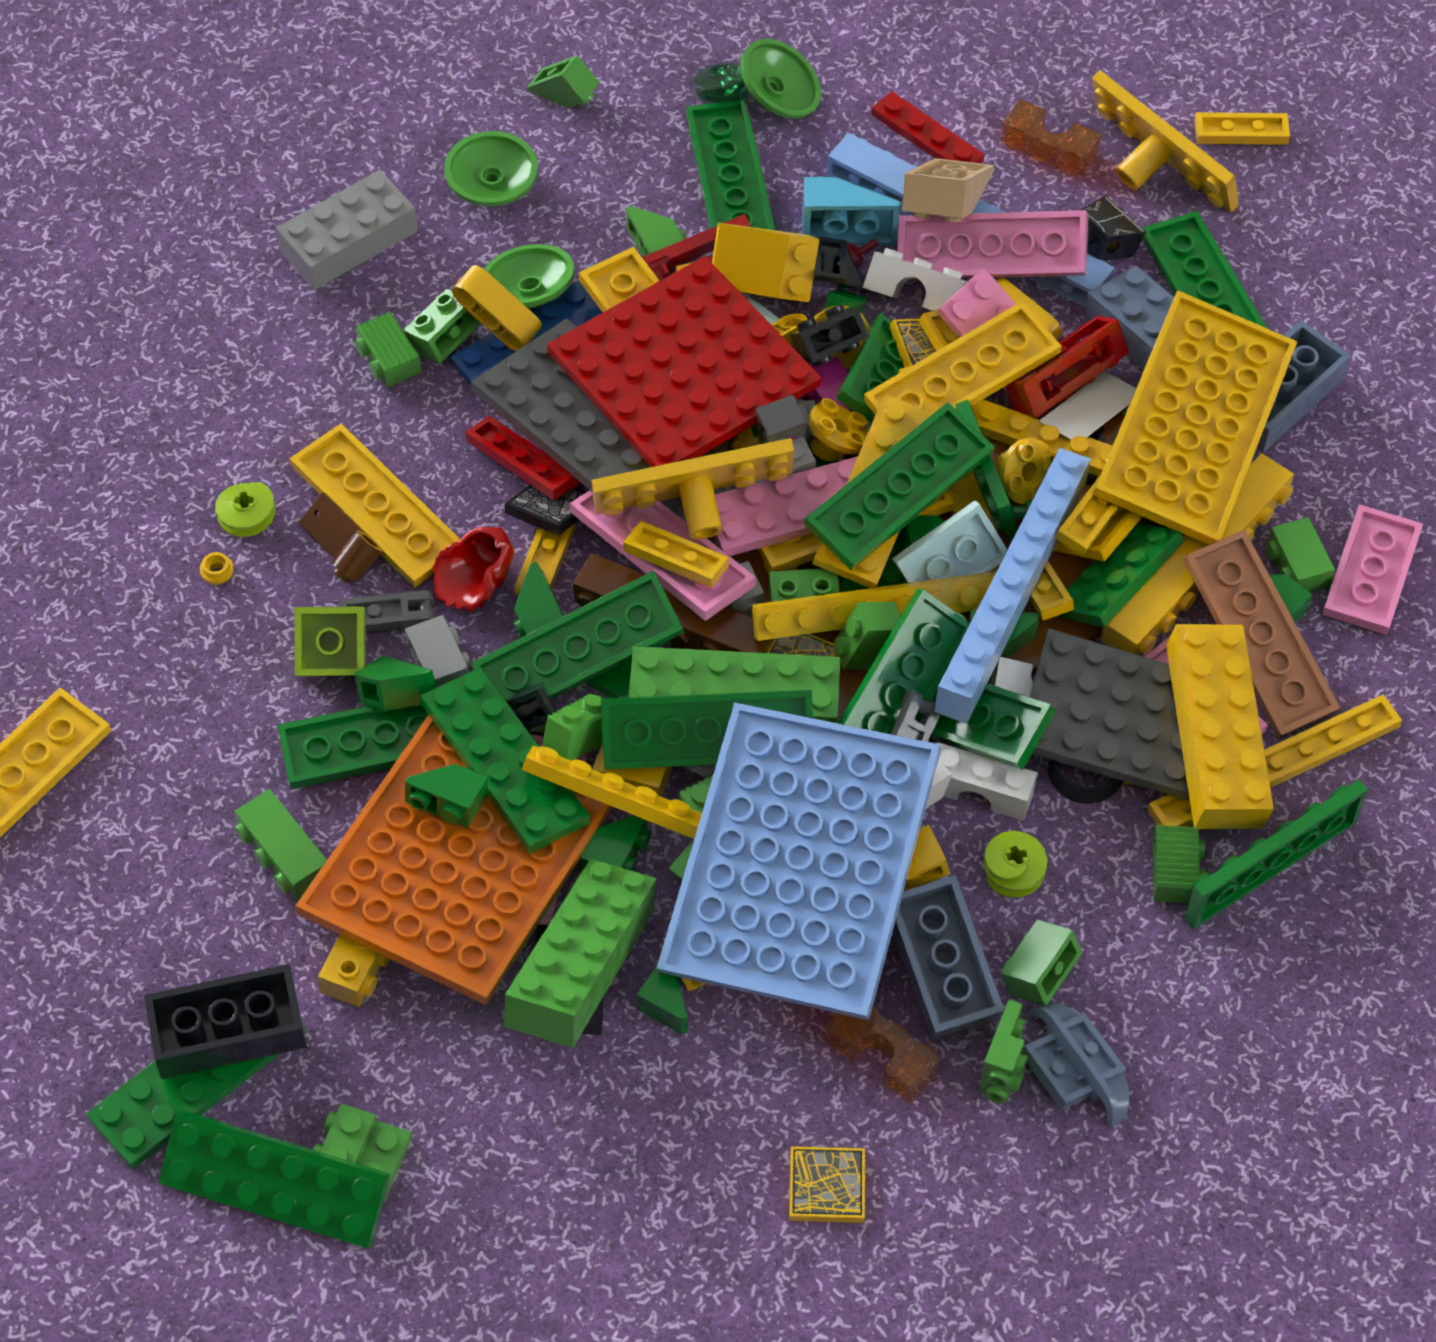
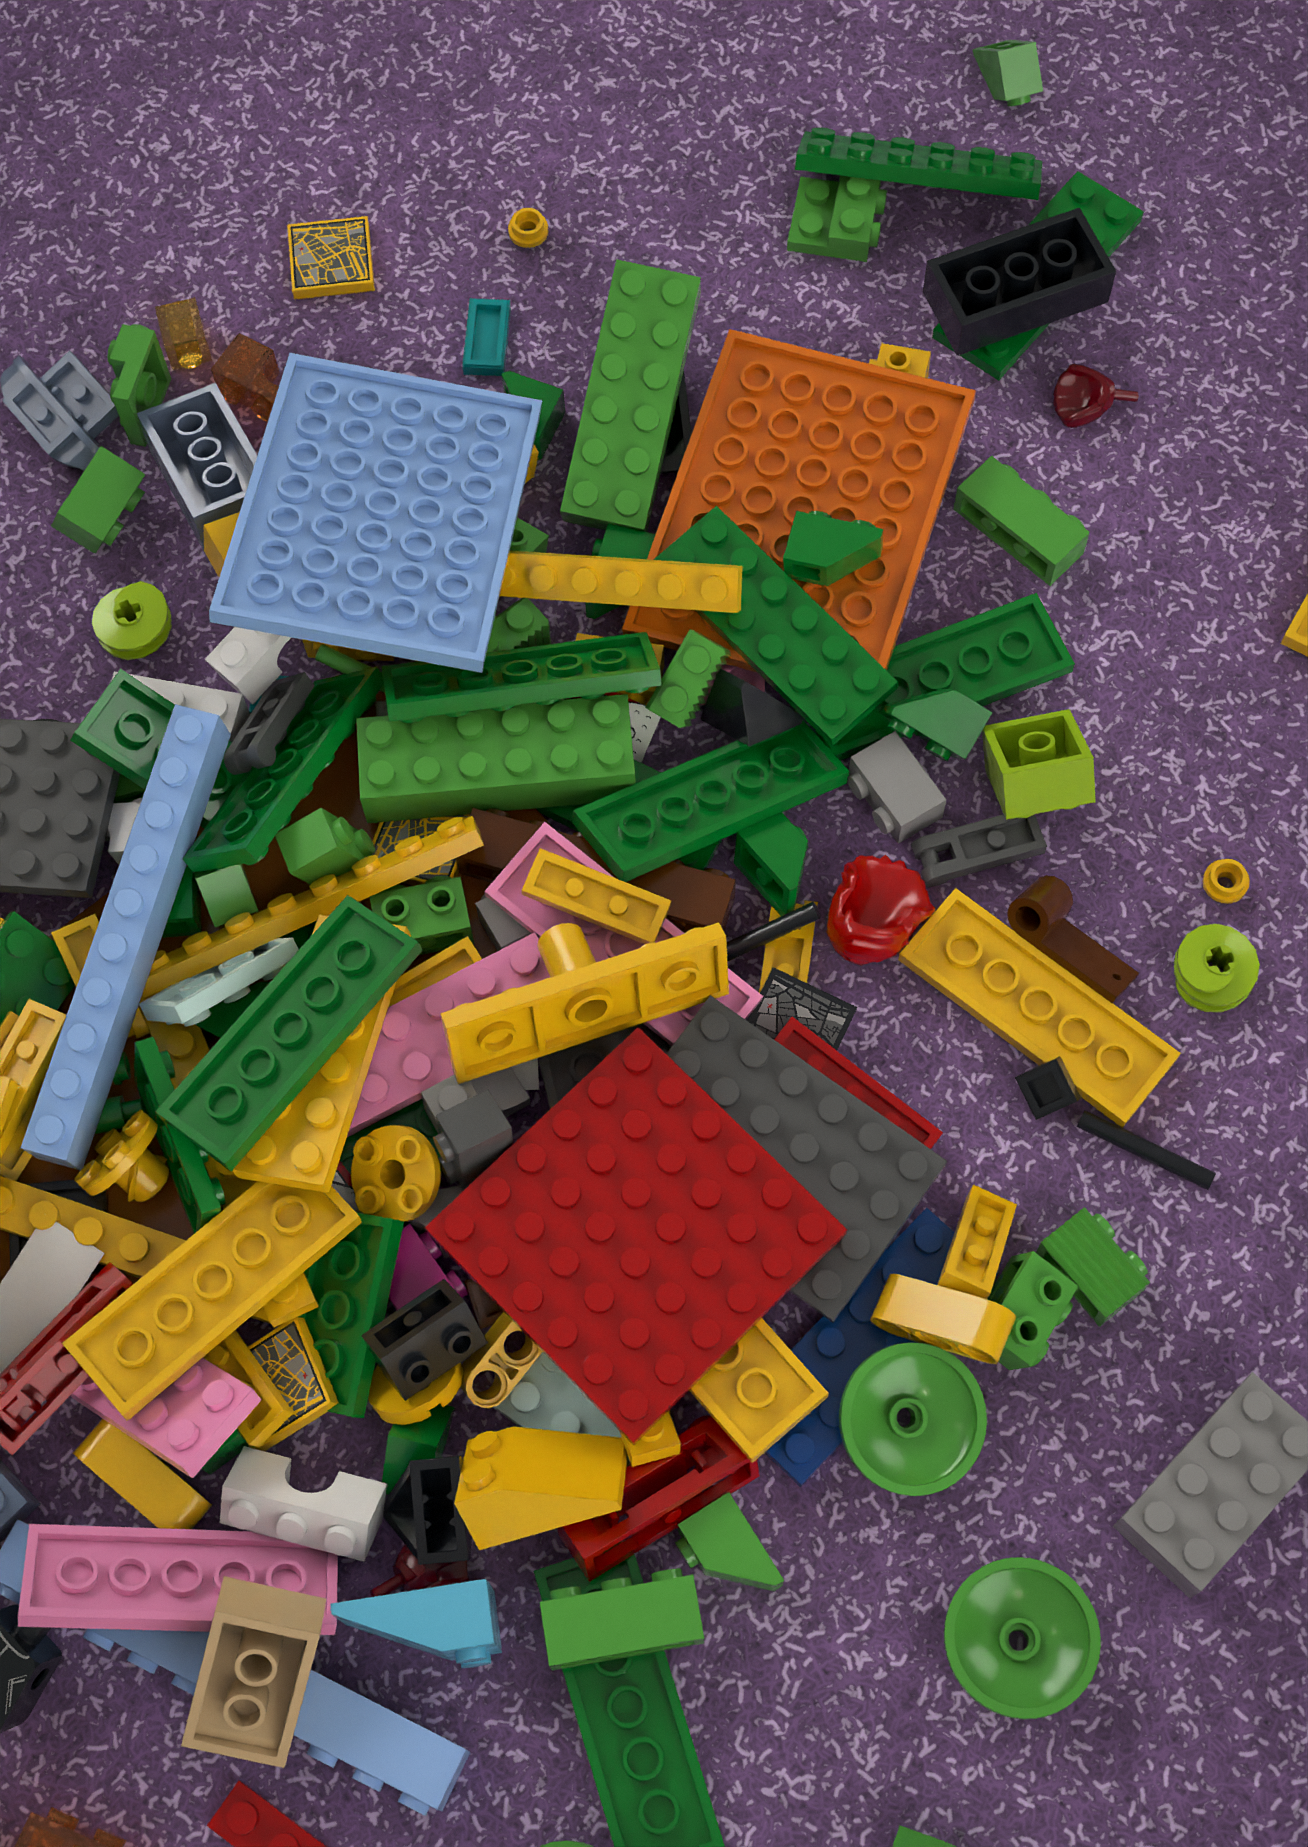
camera: 175 degrees right, 10 degrees up
(159, 1282) = (1010, 70): none -> bright green slope
(193, 946) = (1086, 395): none -> dark red piece
(329, 415) = (1146, 1150): none -> black bar
(386, 451) = (1048, 1087): none -> black tile
(461, 356) = (978, 1243): none -> yellow plate
(552, 561) = (772, 930): none -> black bar
(643, 1174) = (528, 219): none -> yellow plate
(695, 1085) = (486, 337): none -> teal tile
(726, 196) = (621, 1619): none -> bright green brick
(964, 1114) = (183, 334): none -> clear yellow brick

